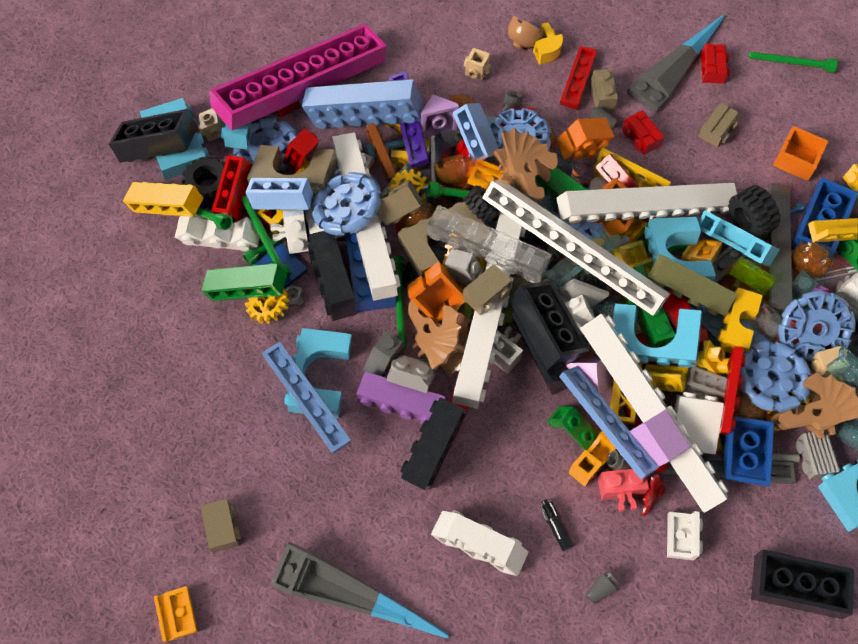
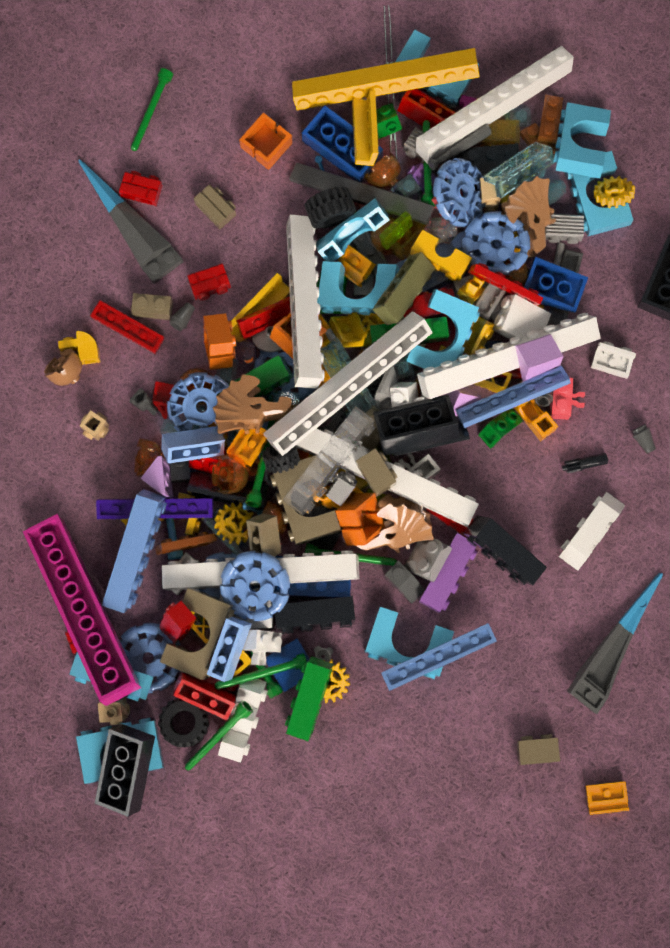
camera: 75 degrees left, 15 degrees up
(163, 199) = (200, 767): yellow brick -> none
(655, 491) = (572, 373): red plate -> none

